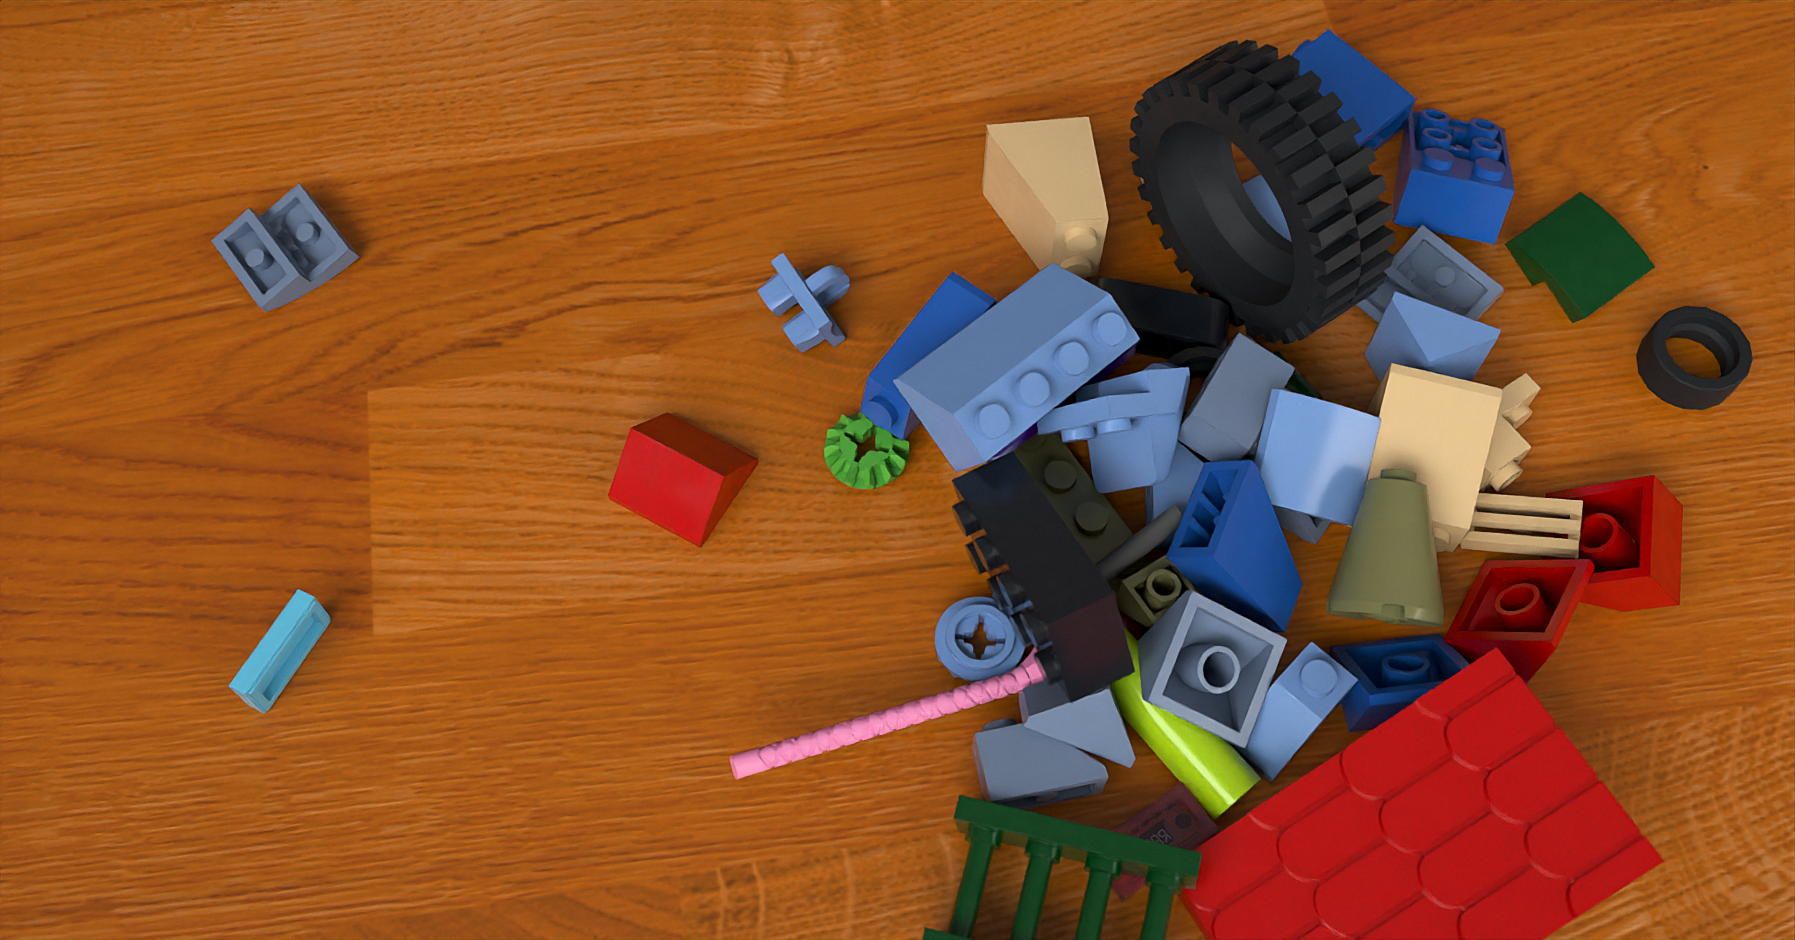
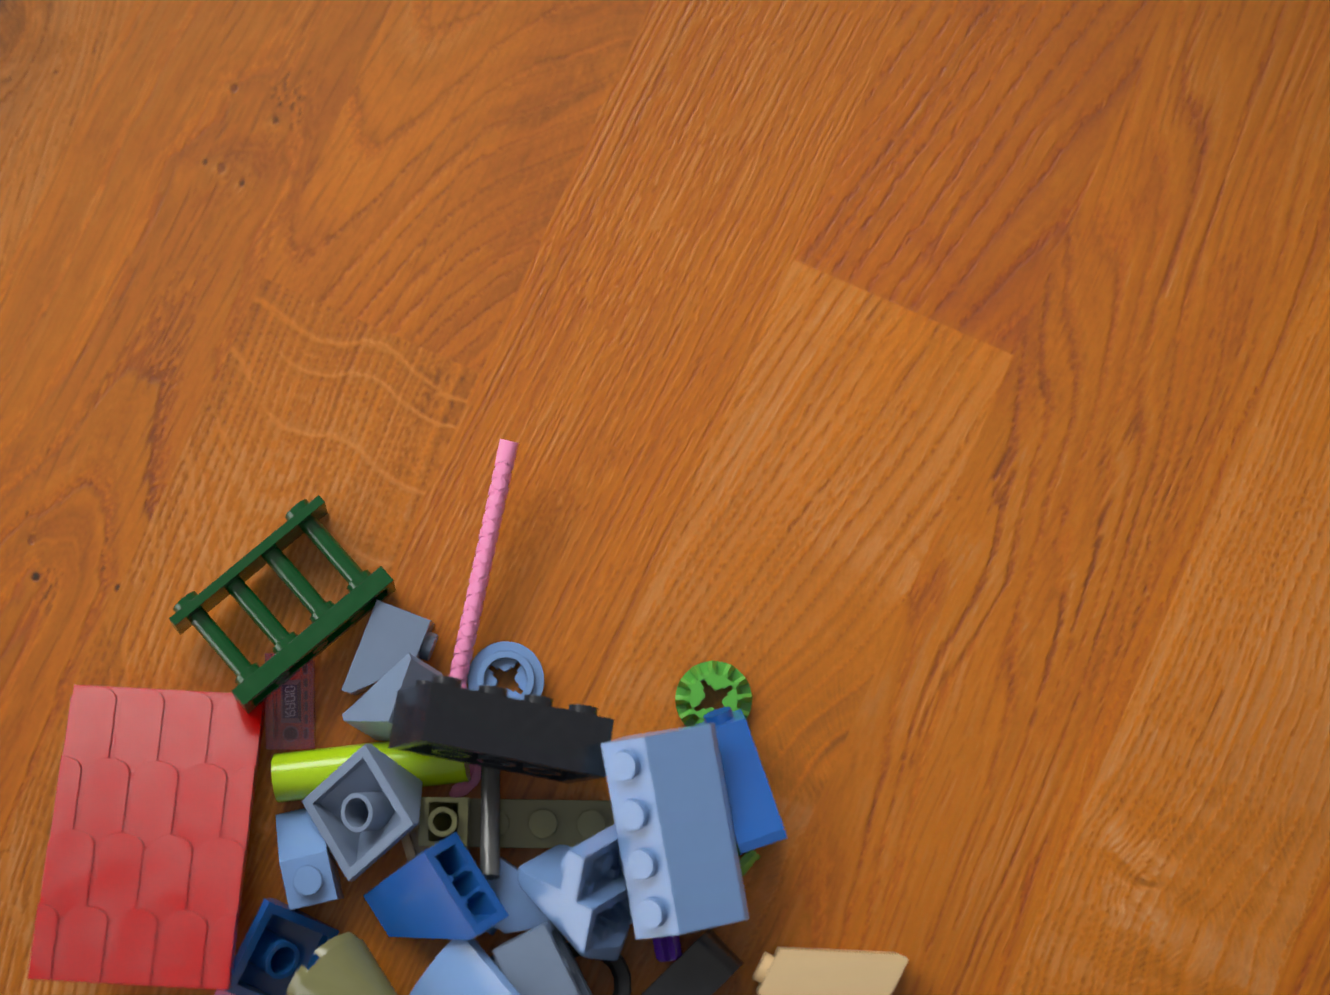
camera: 130 degrees right, 20 degrees up
(281, 651) = (810, 188): medium azure tile -> none
(285, 249) = (1189, 353): sand blue slope -> none
(679, 476) = (779, 548): red slope -> none
(814, 297) = (850, 731): medium blue hips -> none

